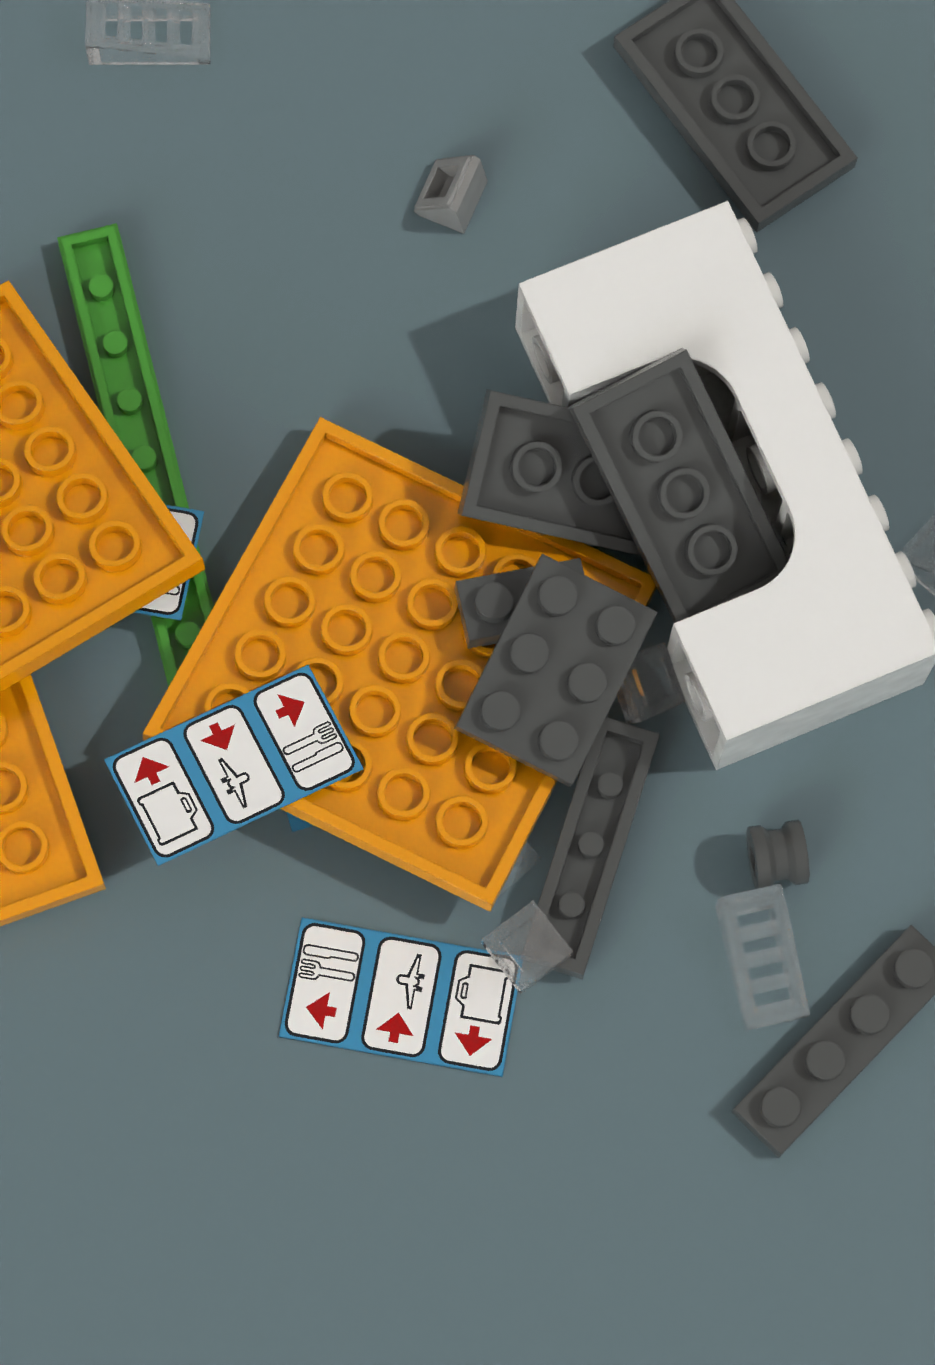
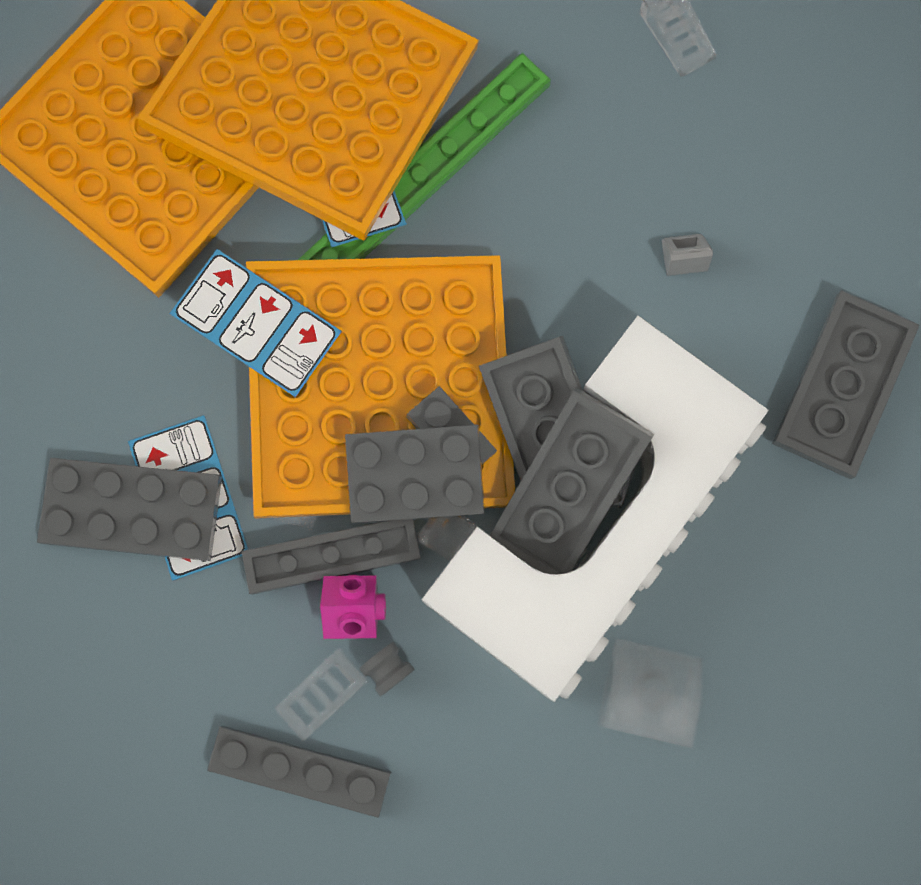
camera: 65 degrees right, 5 degrees up
(376, 1078) = (130, 509): none -> dark grey plate
(527, 947) = (245, 551): clear tile -> none
(675, 852) = (351, 607): none -> dark pink brick

